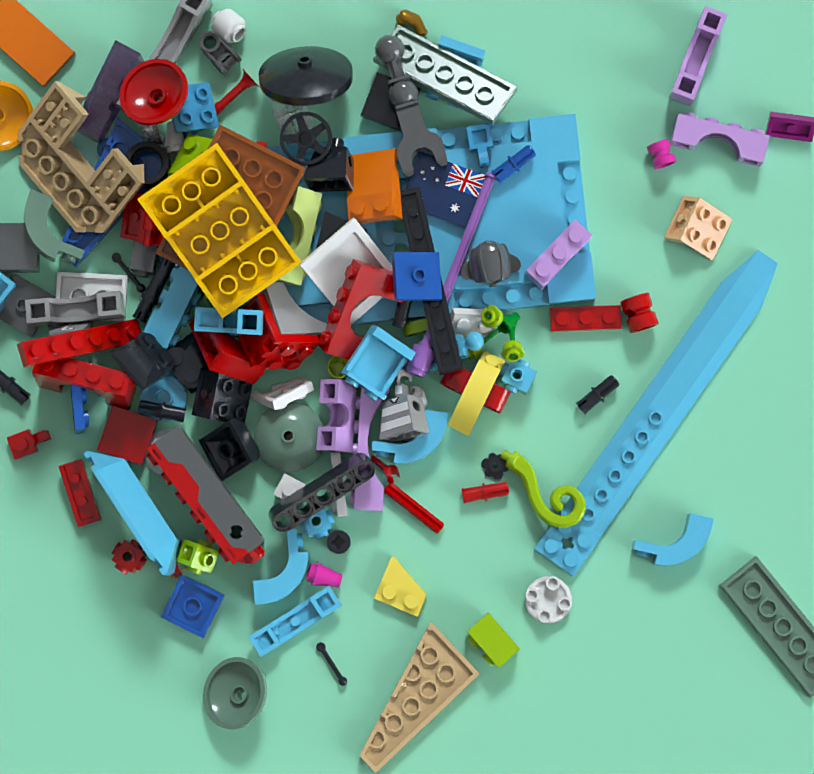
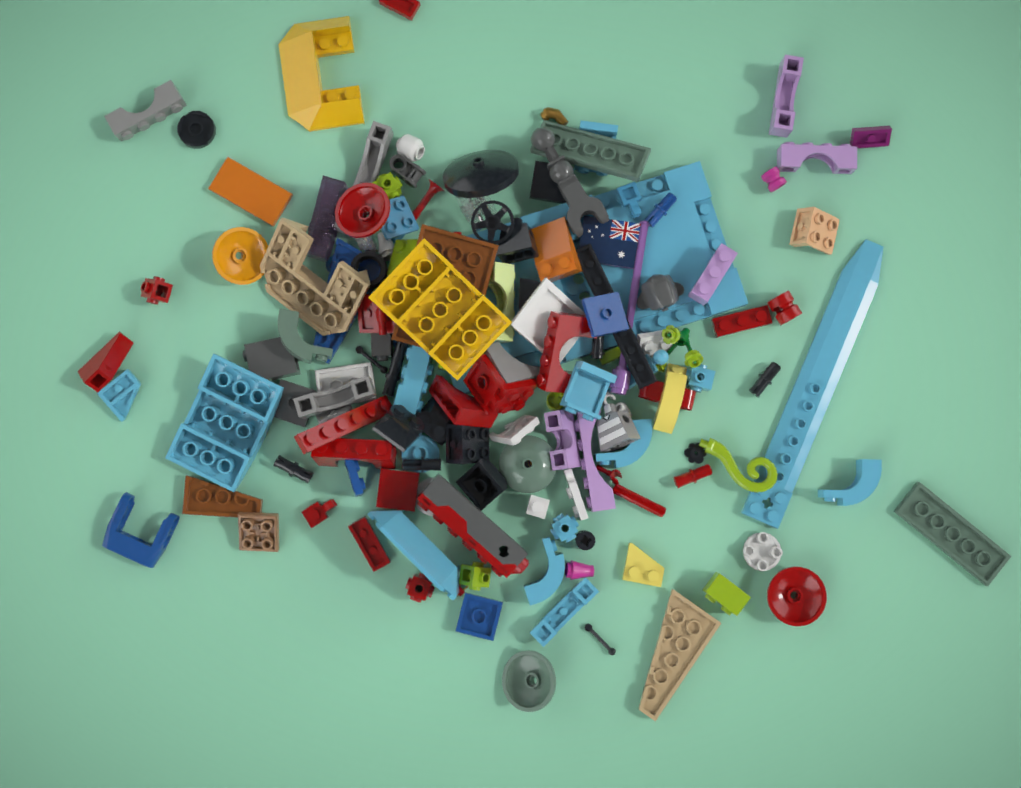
camera: 10 degrees left, 0 degrees up
(193, 67) = (389, 184): none -> lime brick
(238, 321) = (470, 380): medium azure arch -> none
(326, 481) = (555, 506): black beam -> none
(593, 663) = (809, 598): none -> red dish

